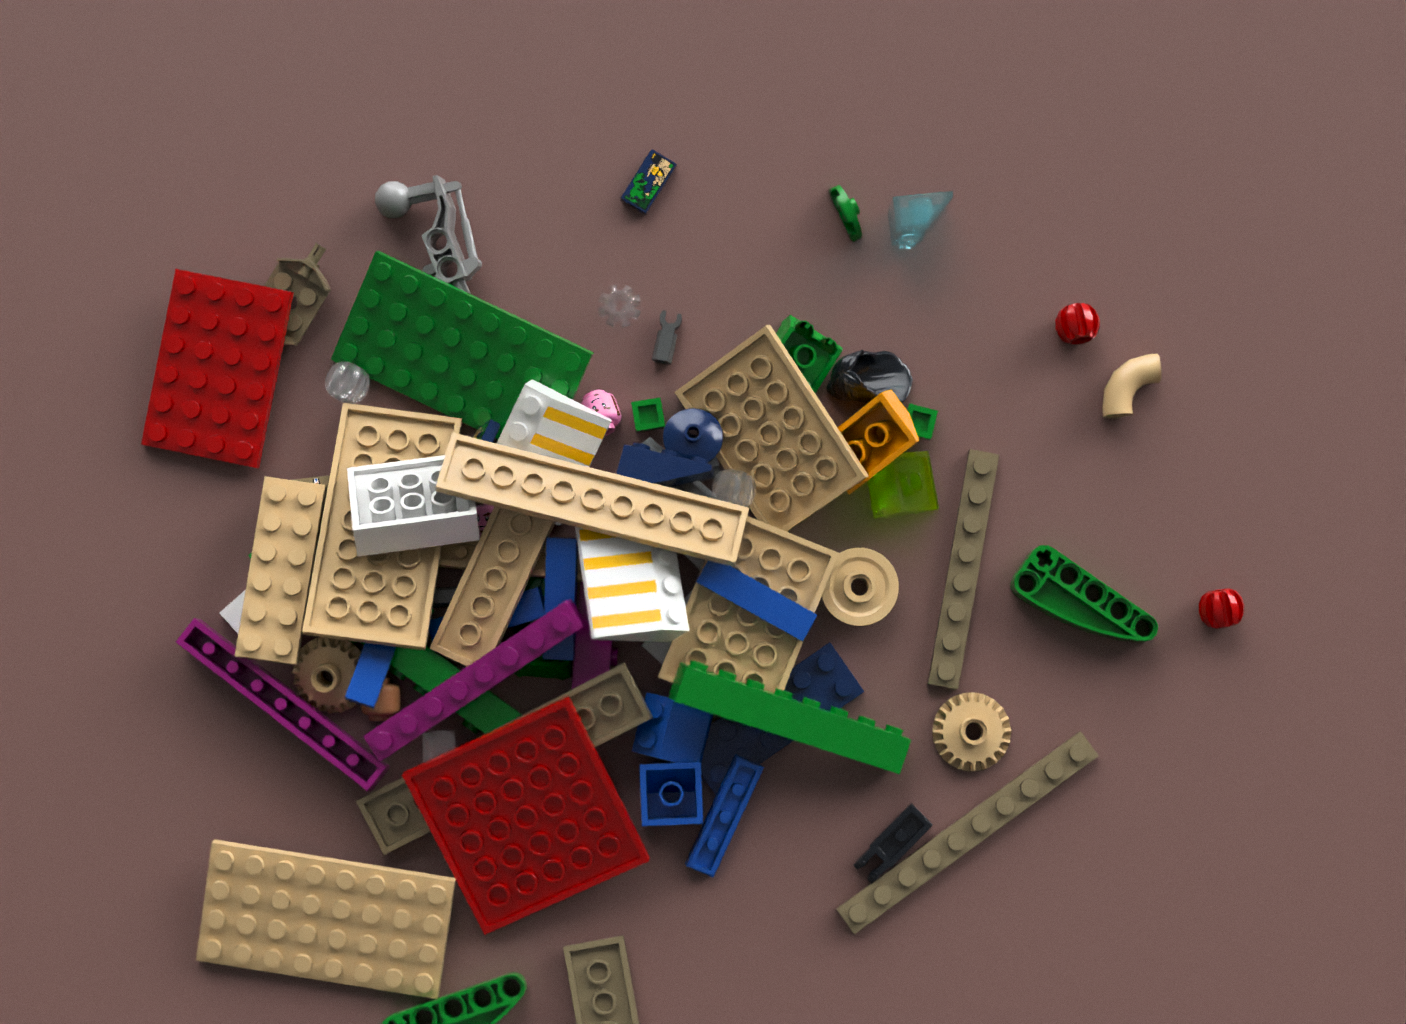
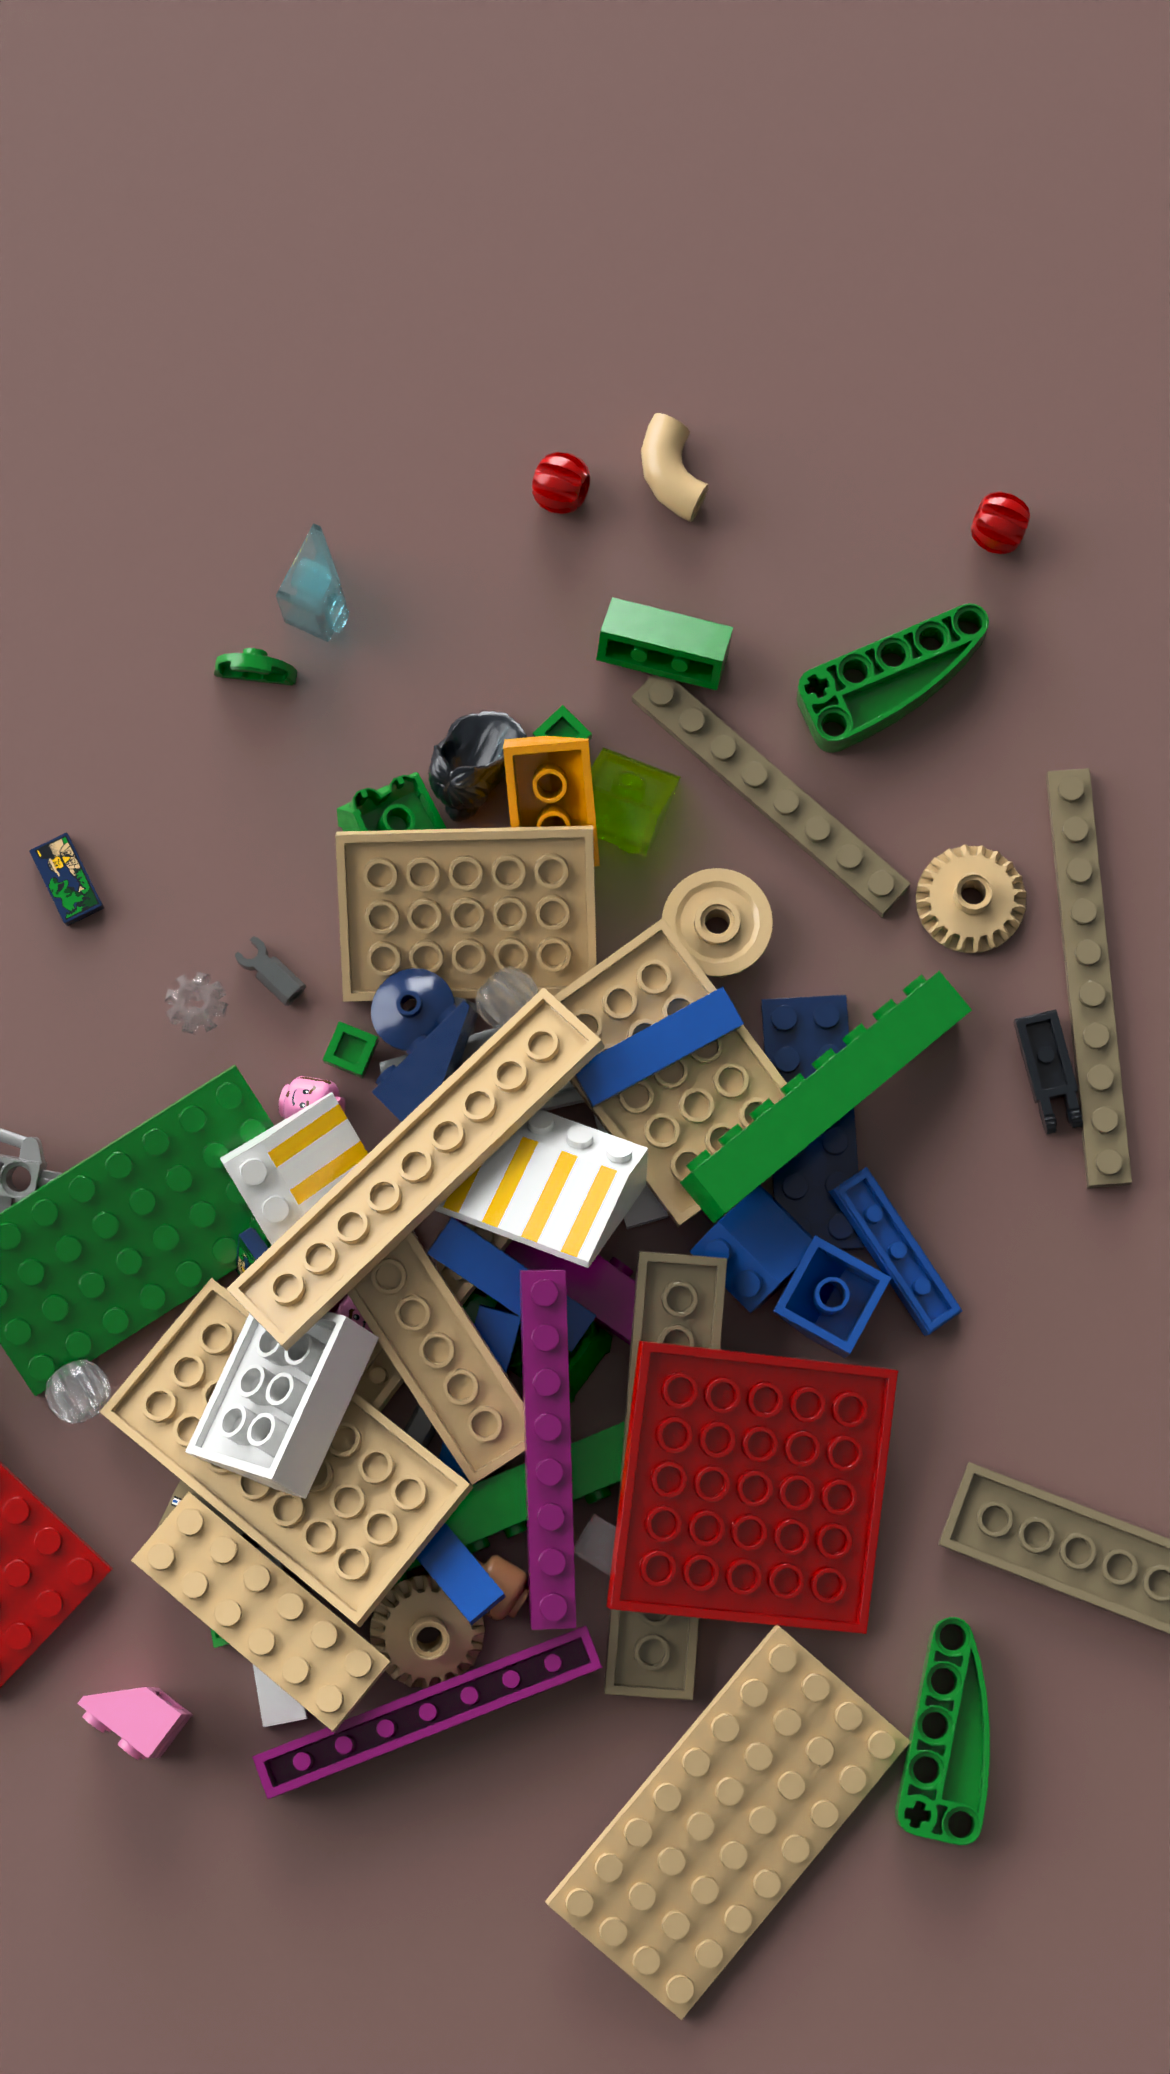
camera: 50 degrees left, 5 degrees down
(178, 536) = (140, 1716): none -> bright pink slope
(1014, 448) = (664, 643): none -> brick

